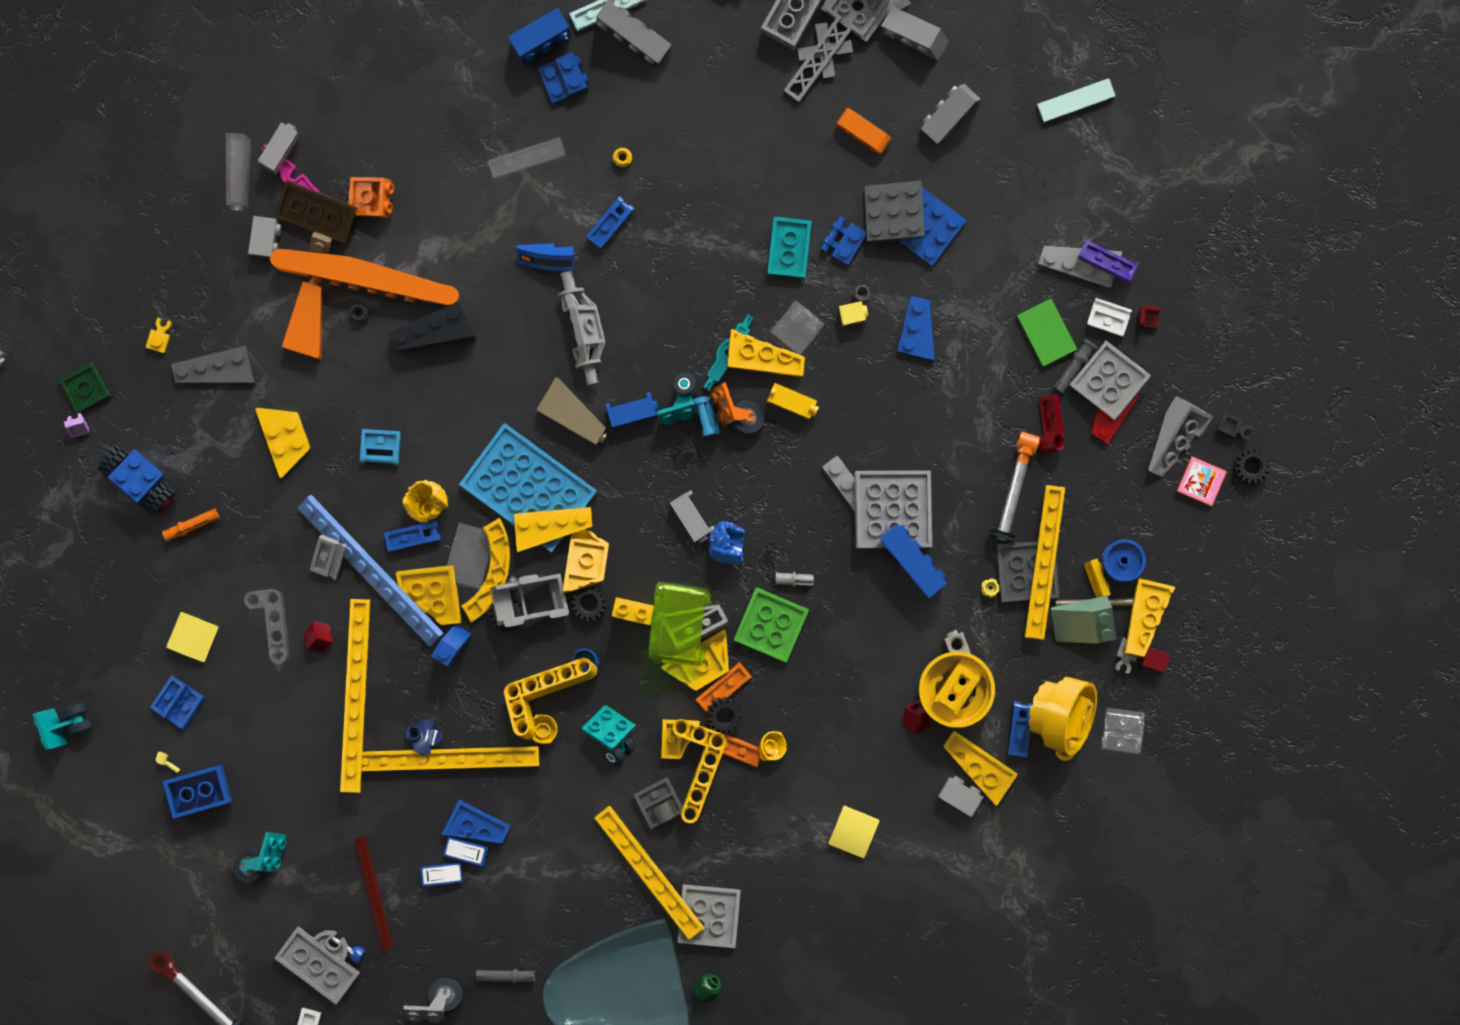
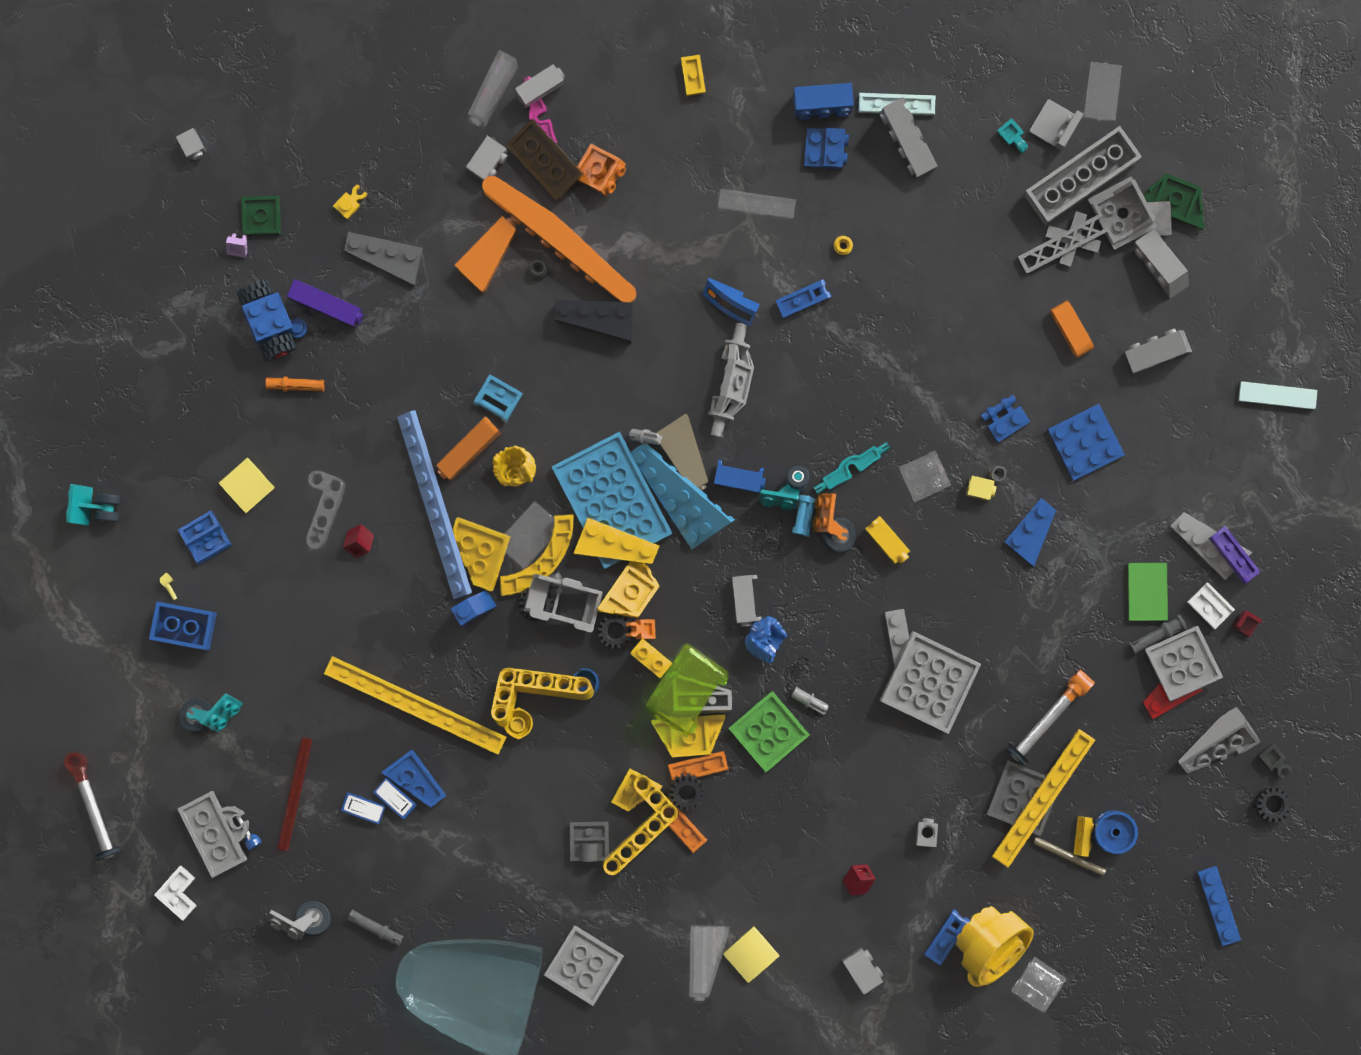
camera: 30 degrees right, 0 degrees up
(170, 472) = (299, 328): none -> blue plate
(182, 439) = (325, 303): none -> dark purple slope
(284, 437) = (416, 347): yellow wing -> none
(320, 243) = (534, 189): dark tan plate -> none
(328, 557) = (402, 474): light grey plate -> none
(355, 696) = (365, 610): yellow plate -> none
(376, 505) = (468, 449): none -> orange slope
(411, 536) = (486, 492): blue plate -> none
(412, 70) = (693, 75): none -> yellow plate
(426, 736) = (410, 679): dark blue plate -> none
(529, 415) = (645, 436): none -> light grey axle
(592, 456) = (685, 503): none -> dark azure wing
(611, 731) = (579, 757): teal plate -> none
(612, 589) = (642, 629): none -> orange plate
(649, 872) = (549, 900): yellow tile -> none
(707, 988) = (550, 1029): dark green head -> none
(760, 356) = (876, 484): yellow wing -> none
(772, 746) = (716, 841): yellow hat -> none
(789, 247) = (953, 400): teal plate -> none
(813, 853) = (705, 955): none -> clear slope
(894, 211) = (1064, 415): dark grey plate -> none
(912, 560) = (925, 737): blue wedge -> none
(942, 679) = (899, 857): yellow piece -> none
(985, 770) = (896, 958): yellow wing -> none
(995, 588) = (982, 801): light yellow plate -> none
(1052, 425) = (1111, 677): dark red plate -> none
(1084, 621) = (1053, 869): sand green slope -> none
(1125, 658) = (1078, 915): light grey plate -> none
(1146, 613) = (1114, 887): yellow wing -> none
(1155, 660) = (1099, 935): dark red panel -> none
(1201, 481) = (1221, 795): tile -> none
(1248, 581) = (1218, 905): none -> blue plate

